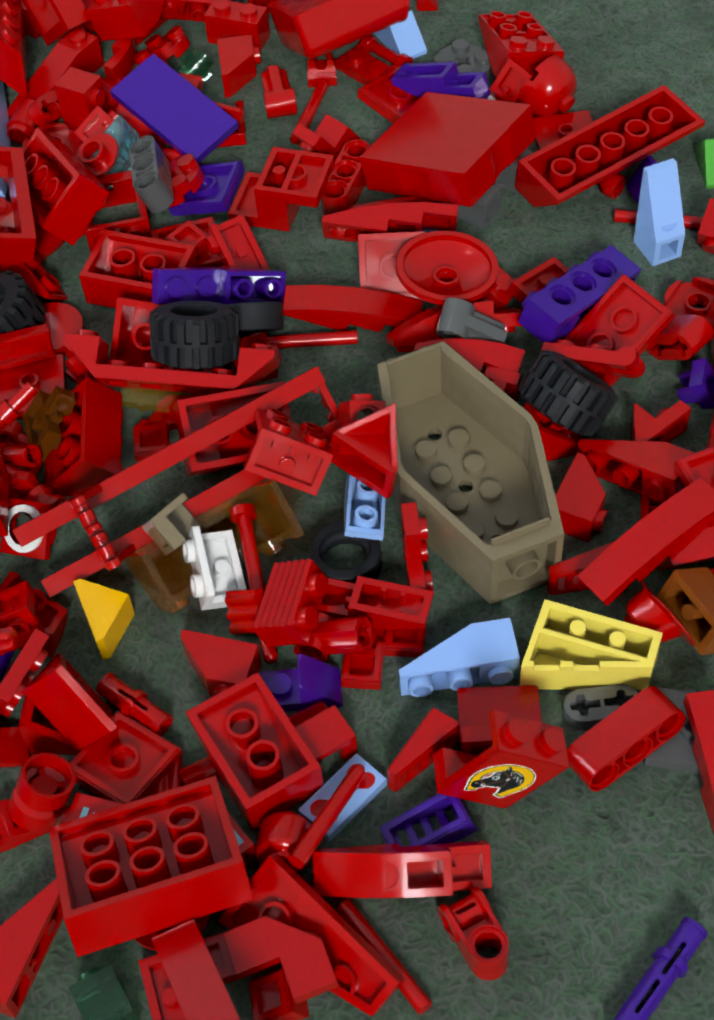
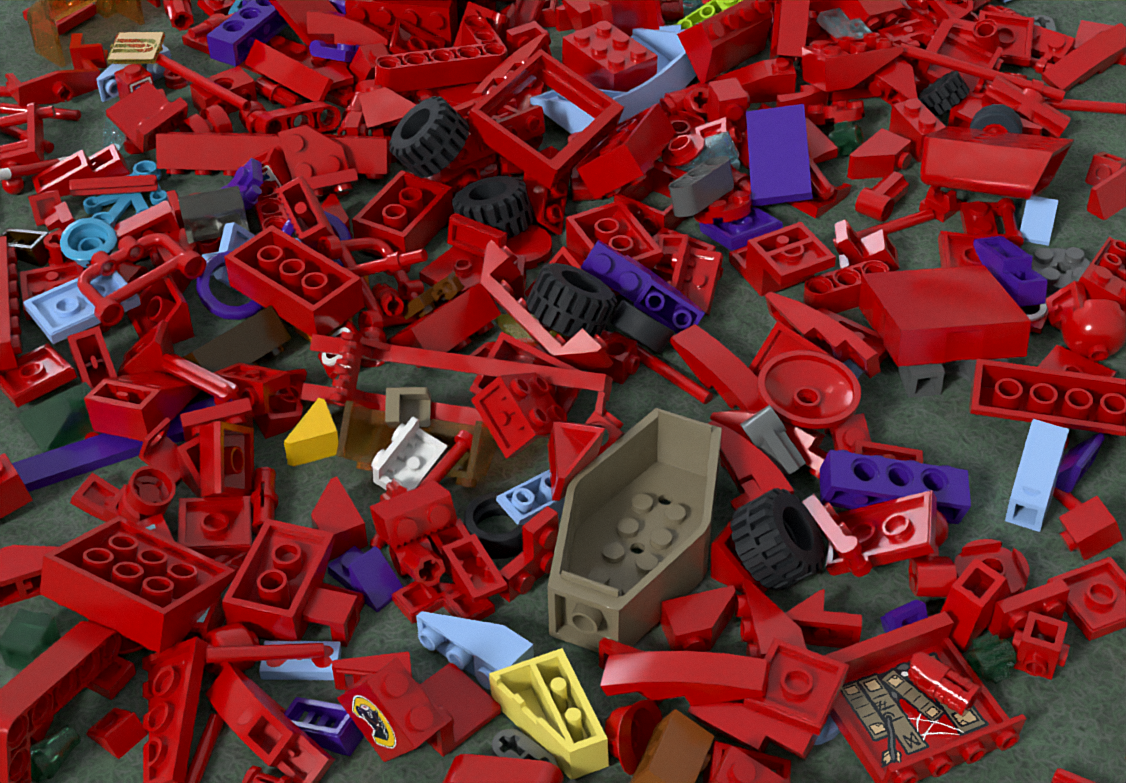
camera: 45 degrees right, 10 degrees down
(271, 942) = (144, 711): red tile -> none

